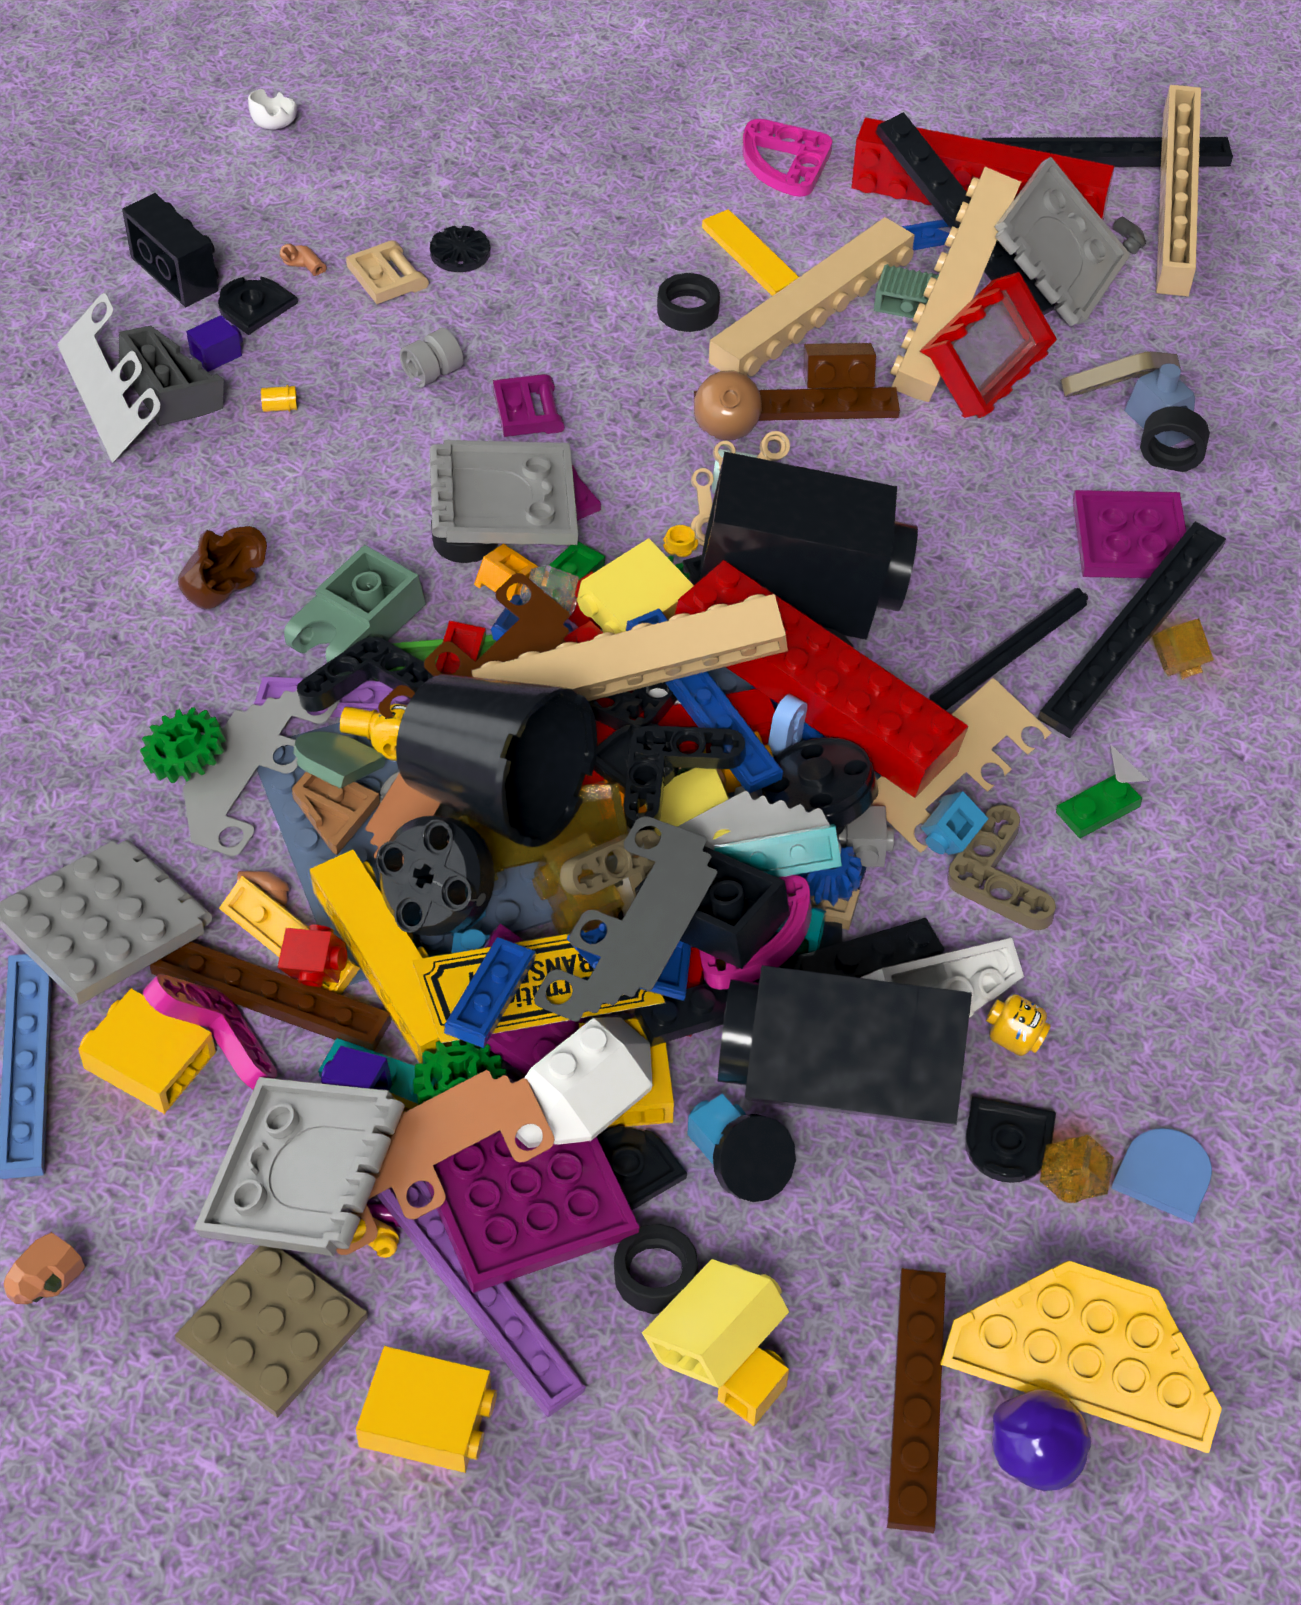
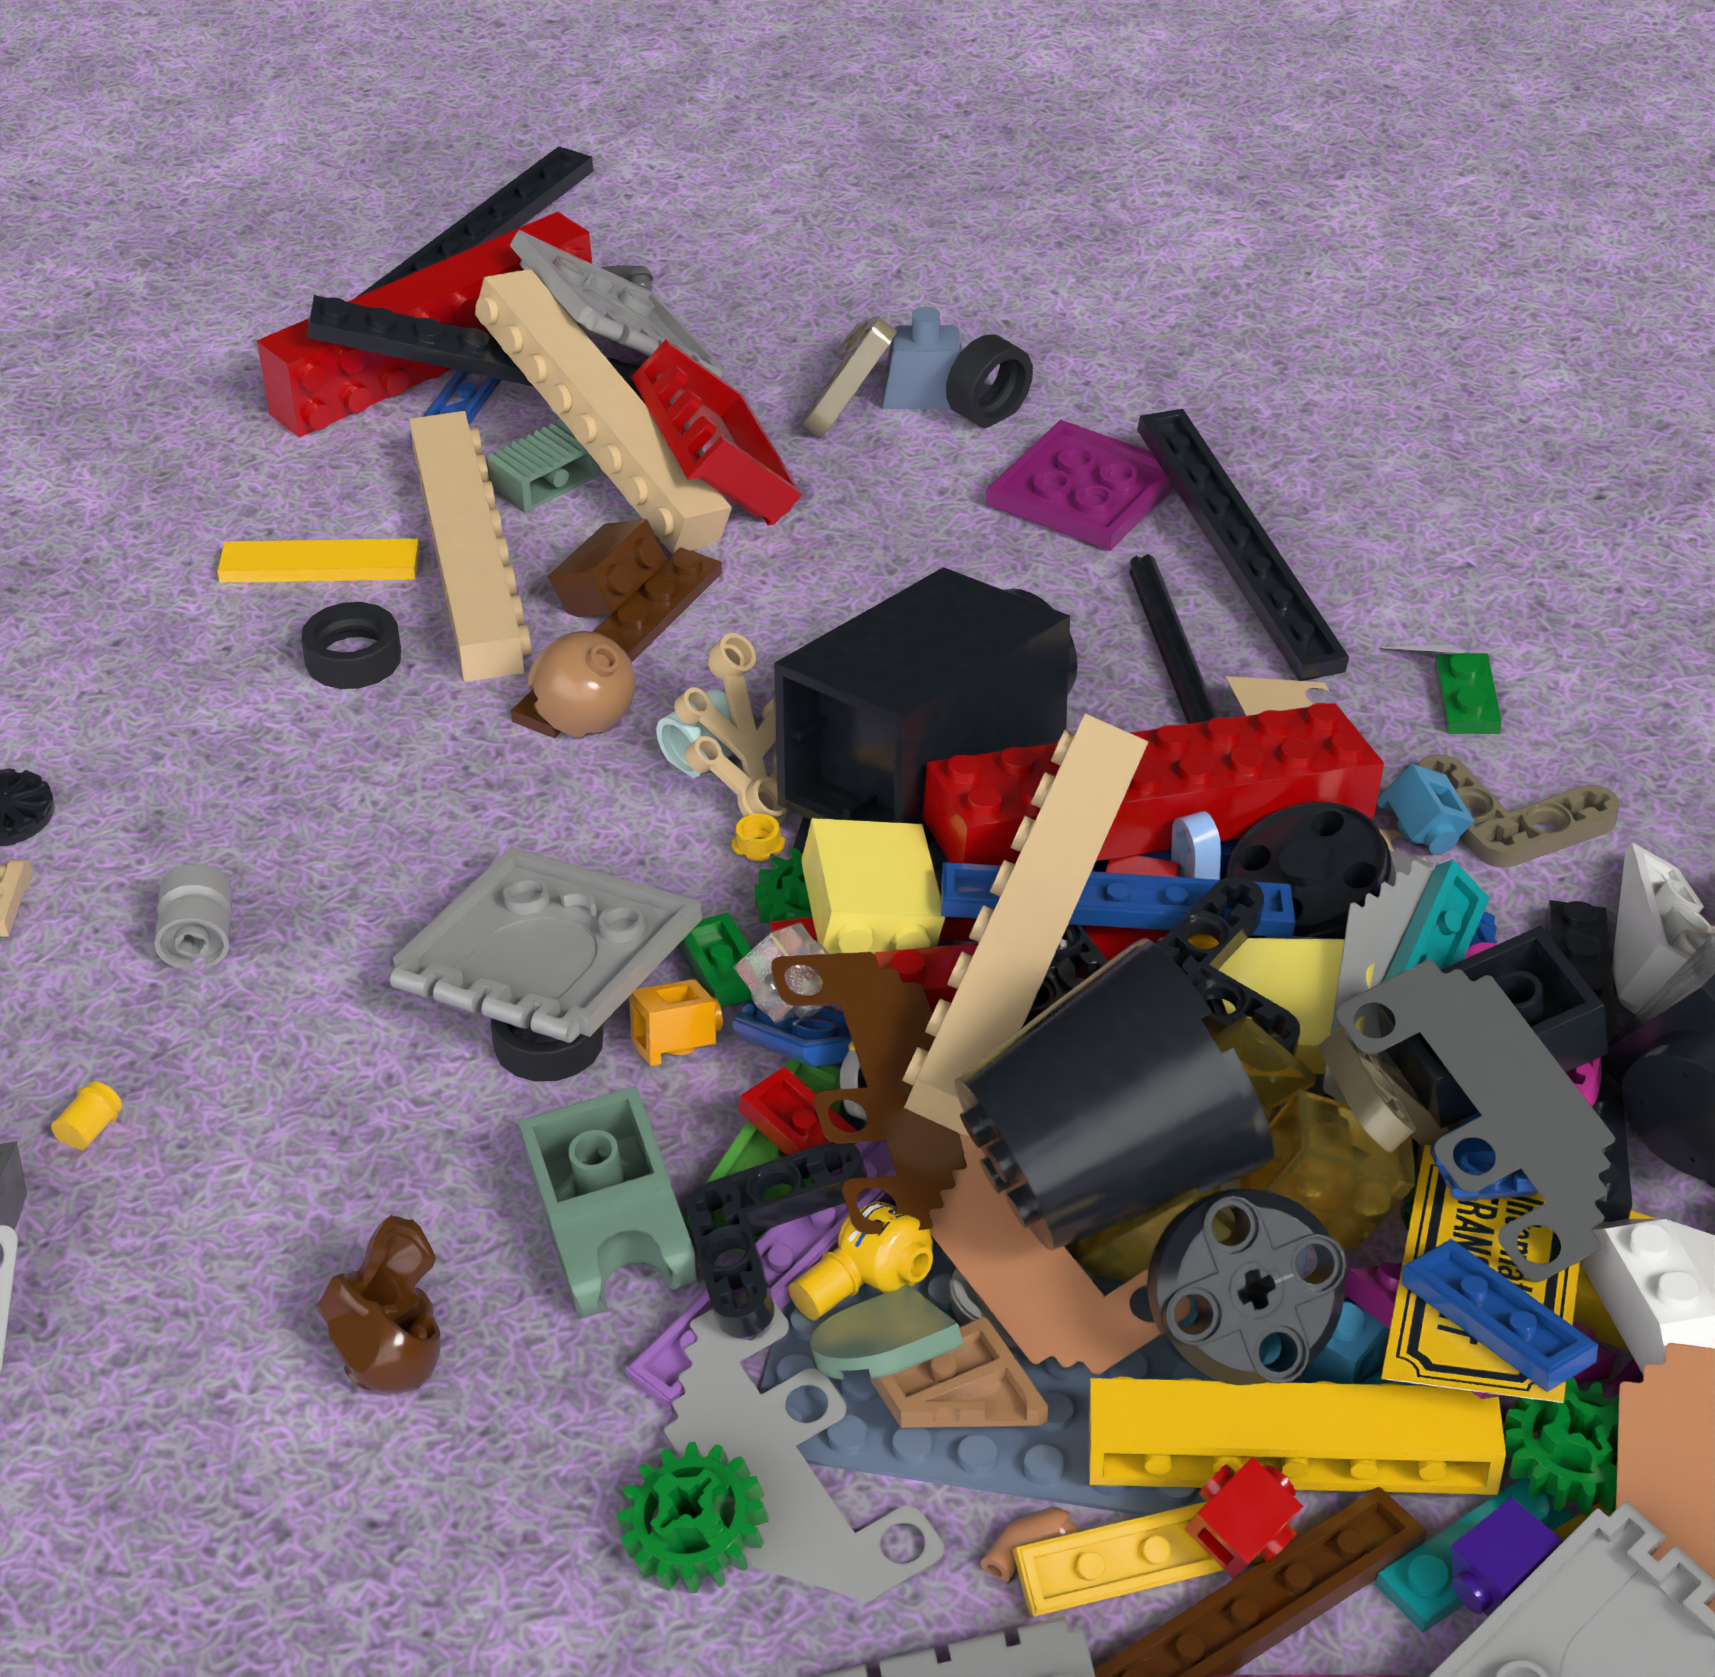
camera: 55 degrees left, 10 degrees down
(517, 408) = (373, 872): magenta plate -> none
(804, 154) = (201, 431): dark pink beam -> none
(1179, 191) = (620, 203): tan brick -> none
(1183, 649) = (1300, 520): clear yellow brick -> none

